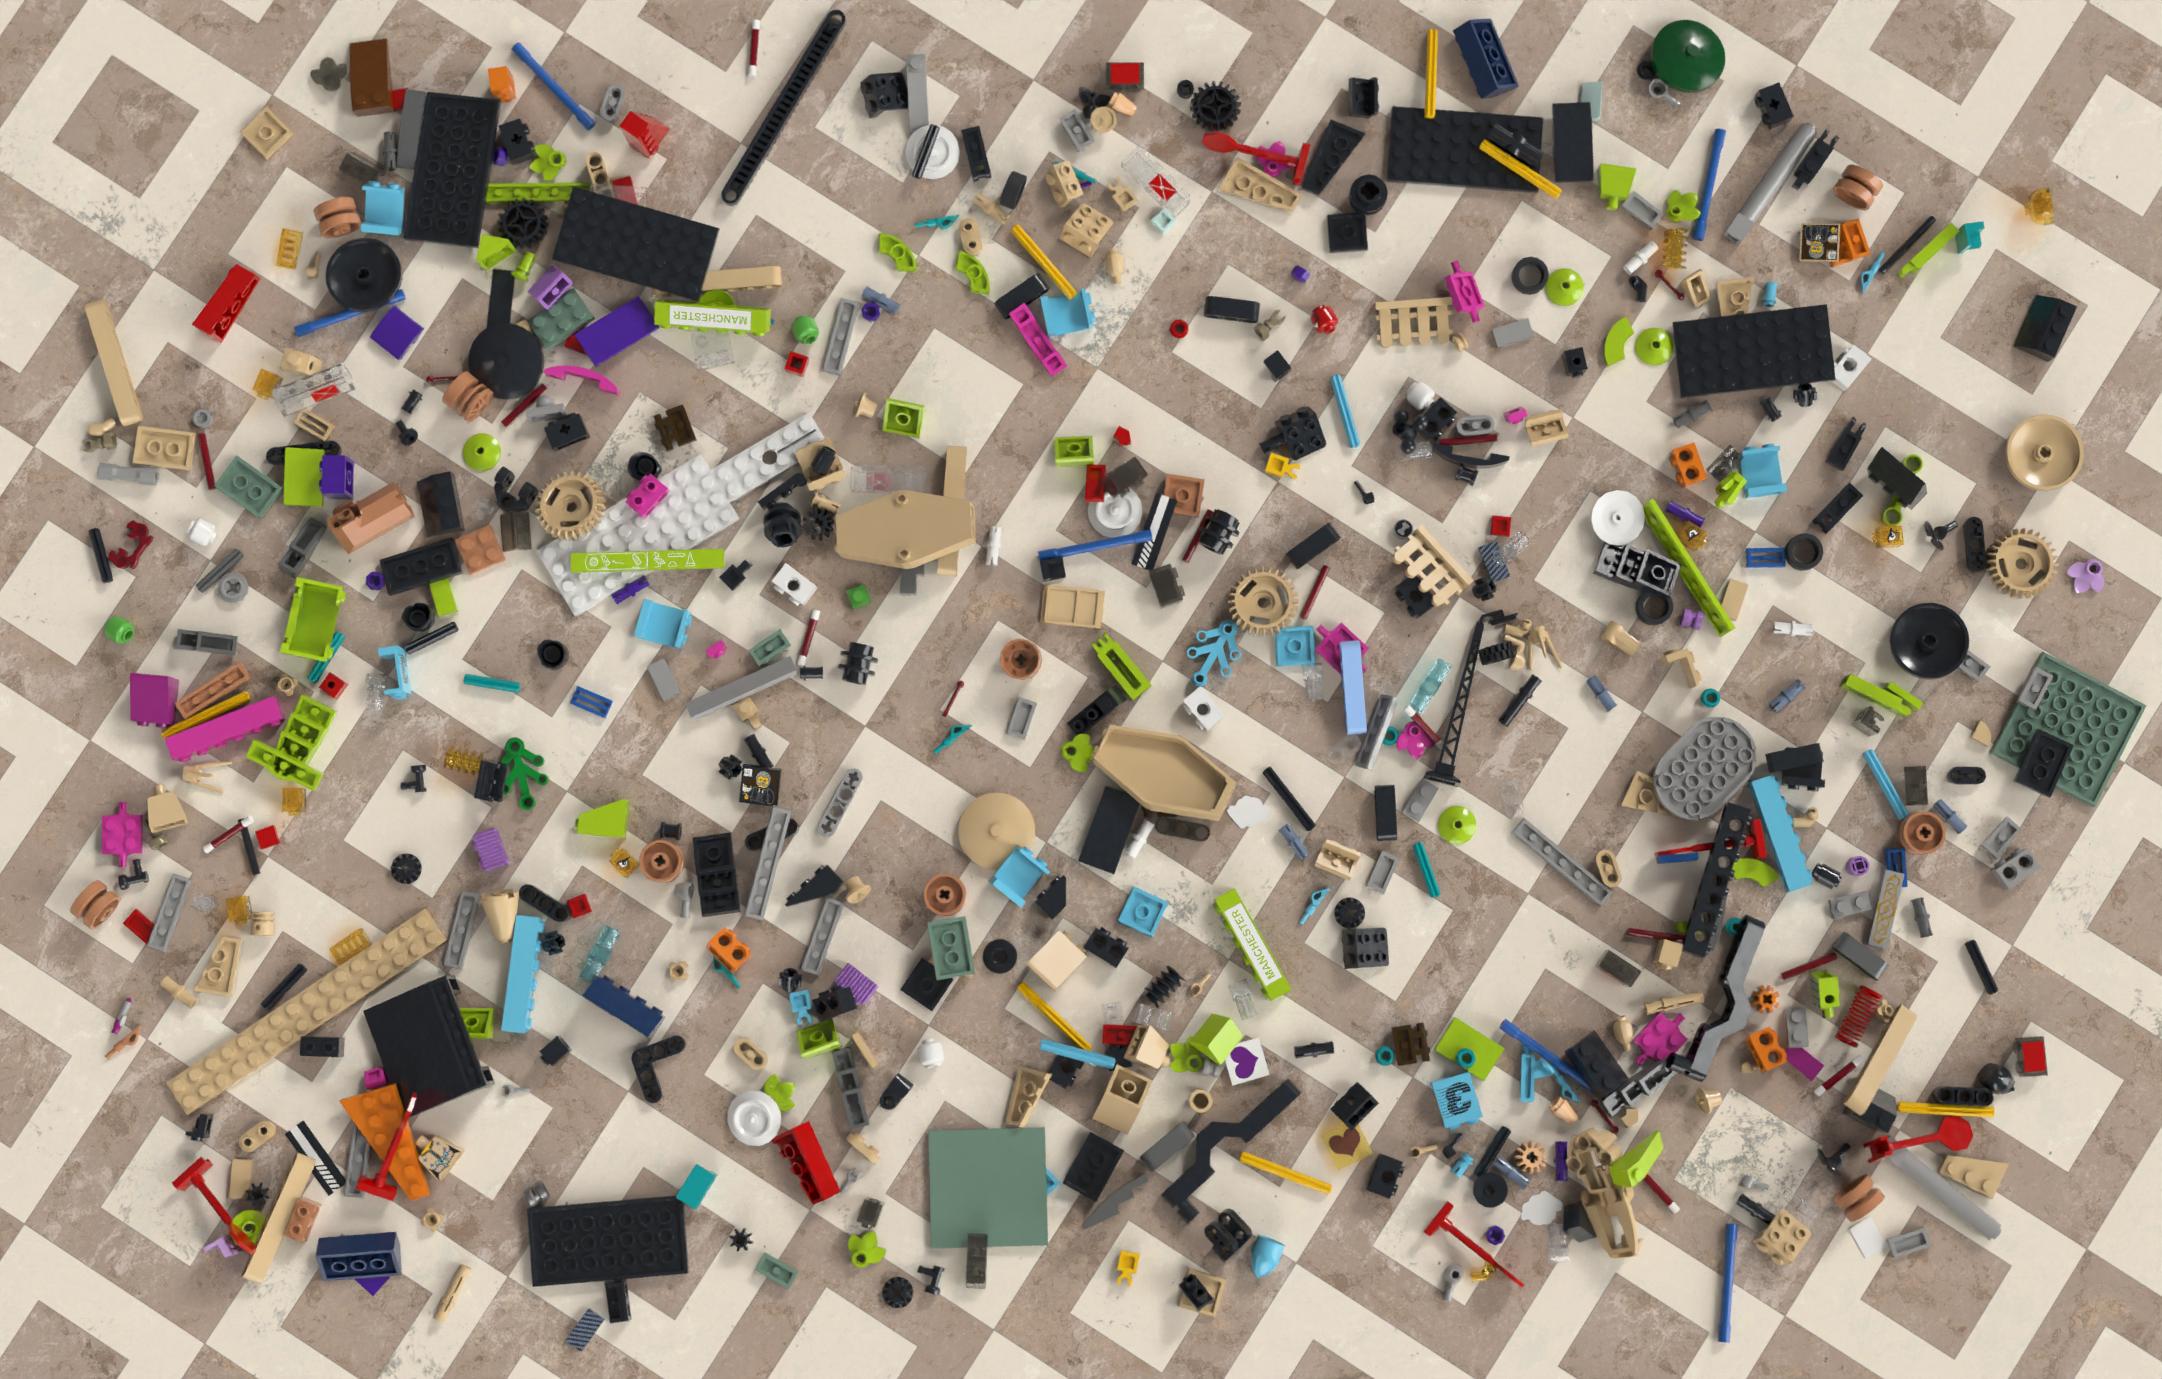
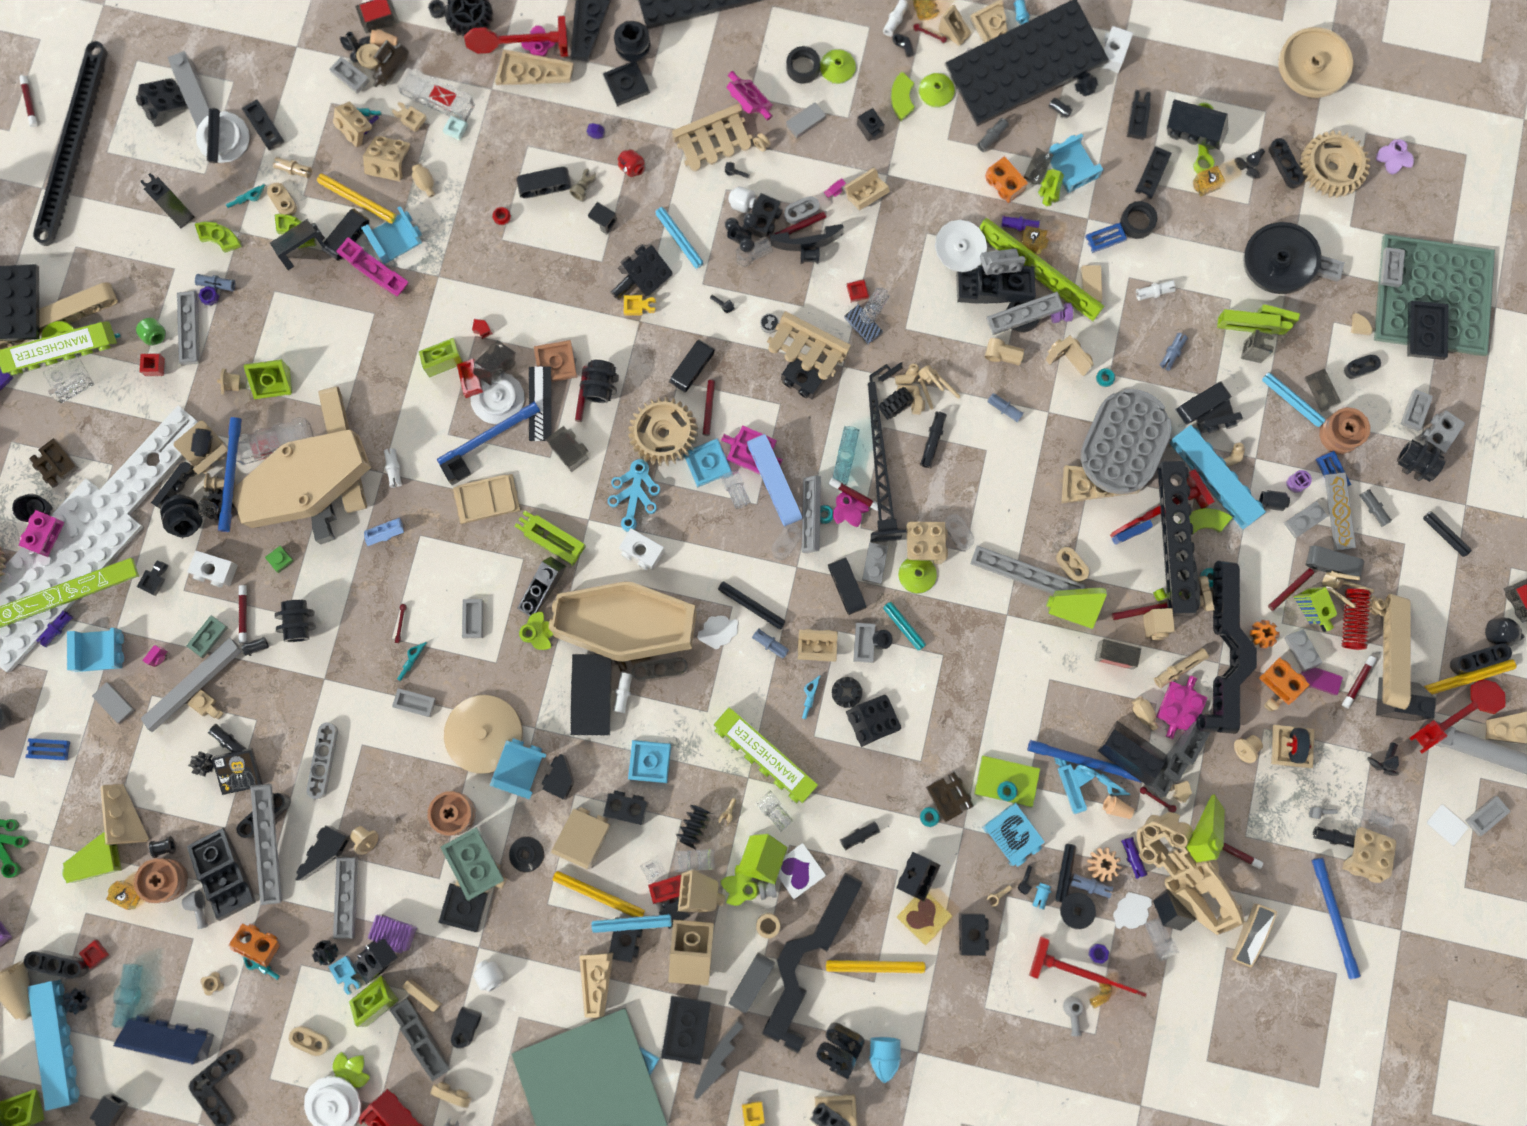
camera: 25 degrees left, 5 degrees down
(641, 789) = (120, 817): none -> tan wing
(856, 463) = (234, 434): none -> blue piece
(864, 209) = (167, 201): none -> black brick
(942, 778) = (414, 702): none -> light grey tile
(965, 605) = (383, 532): none -> light blue plate
(973, 287) = (293, 239): none -> black panel
(1013, 190) = (305, 142): black tyre -> none
(1013, 651) = (441, 558): nougat wheel -> none
(1120, 132) = (390, 64): none -> dark brown piece
(1401, 875) = (882, 639): none -> black tile
(1419, 359) = (730, 170): none -> black hand
(1476, 798) = (927, 541): none -> tan bracket
(1484, 588) = (863, 350): black gear -> none
(1597, 909) = (1077, 605): none -> lime slope
(1644, 1270) = (1254, 935): none -> slope
(1650, 549) = (1001, 261): none -> light grey bracket
(1654, 609) = (1025, 313): none -> light grey tile
(1721, 946) = (1205, 594): none -> tan plate
(1750, 1113) = (1292, 746): none -> tan plate
(1853, 973) = (1334, 580): none -> tan plant
(1858, 1198) = (1427, 790): nougat wheel -> none
(1949, 816) = (1365, 407): sand blue axle -> none
(1982, 888) = (1424, 462): none -> black piece

